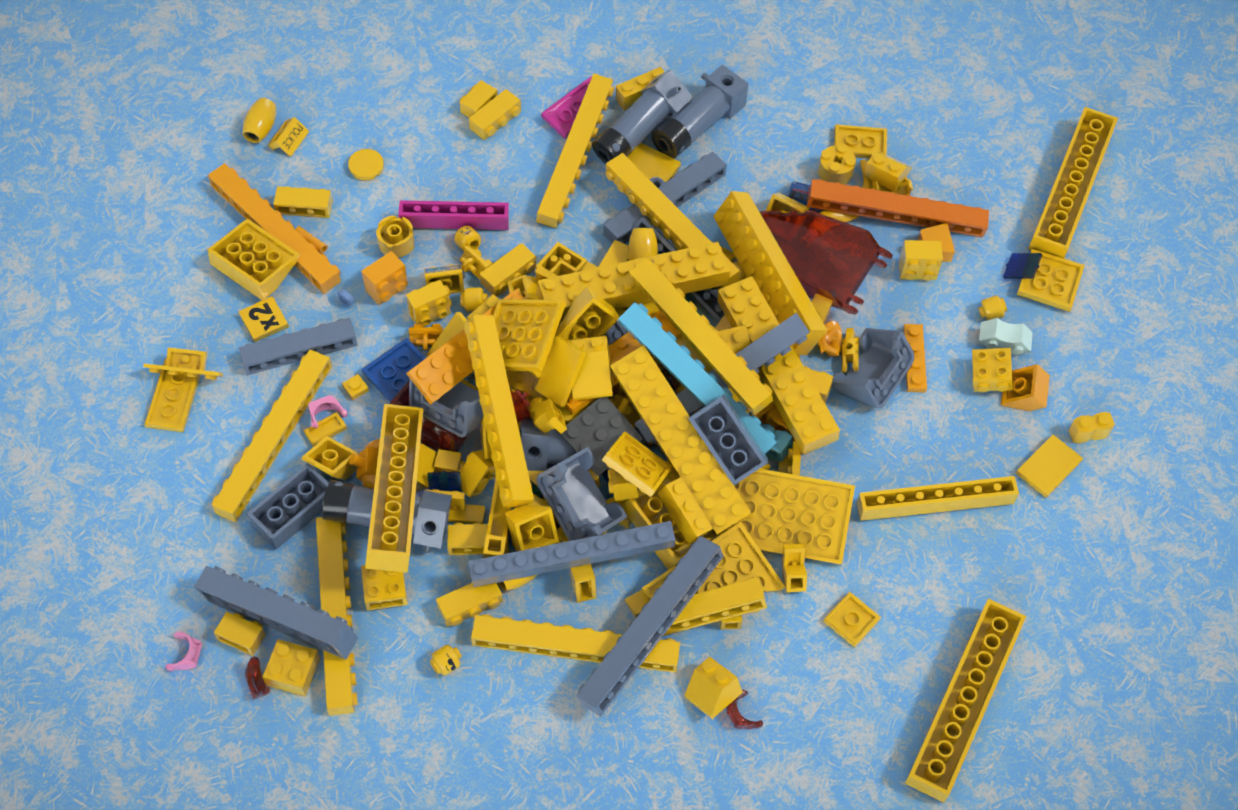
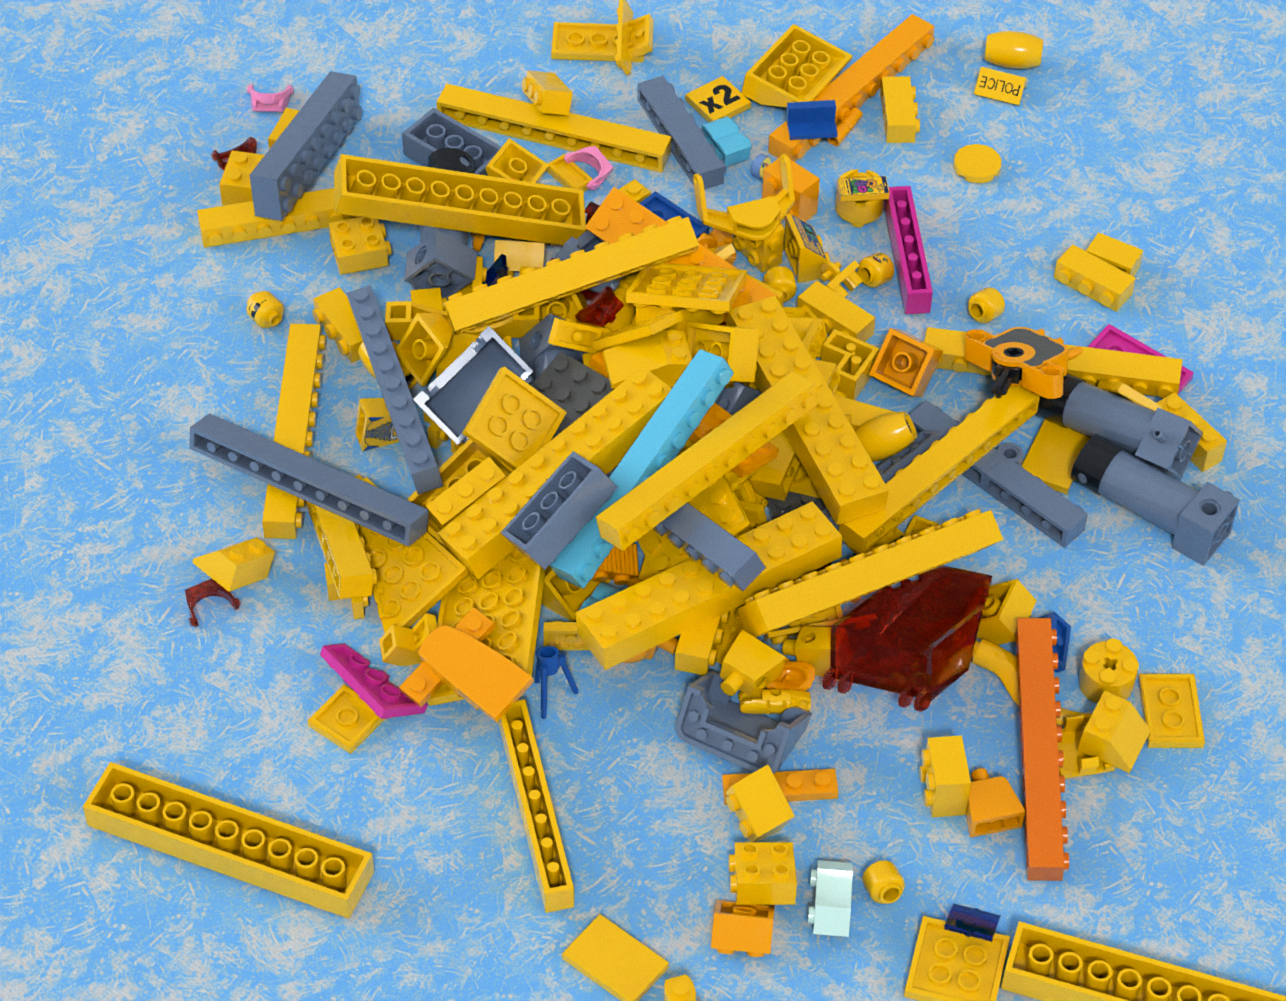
camera: 85 degrees right, 10 degrees down
(244, 429) = (547, 92): none -> yellow brick
(313, 315) = (727, 140): none -> medium azure brick
(318, 253) = (811, 119): none -> blue panel
(401, 227) = (863, 188): none -> tile
(432, 290) = (752, 219): none -> yellow piece
(512, 179) = (986, 305): none -> yellow head
(569, 227) = (906, 362): none -> light orange brick
(595, 155) = (1022, 359): none -> light orange piece
(619, 110) = (1128, 393): none -> yellow tile
(829, 473) = (548, 664): none -> blue plant
(834, 355) = (750, 666): none -> yellow torso
(836, 593) = (369, 683): none -> dark pink wing
(837, 524) = (467, 668): none -> light orange slope
(944, 363) = (759, 805): none -> yellow slope

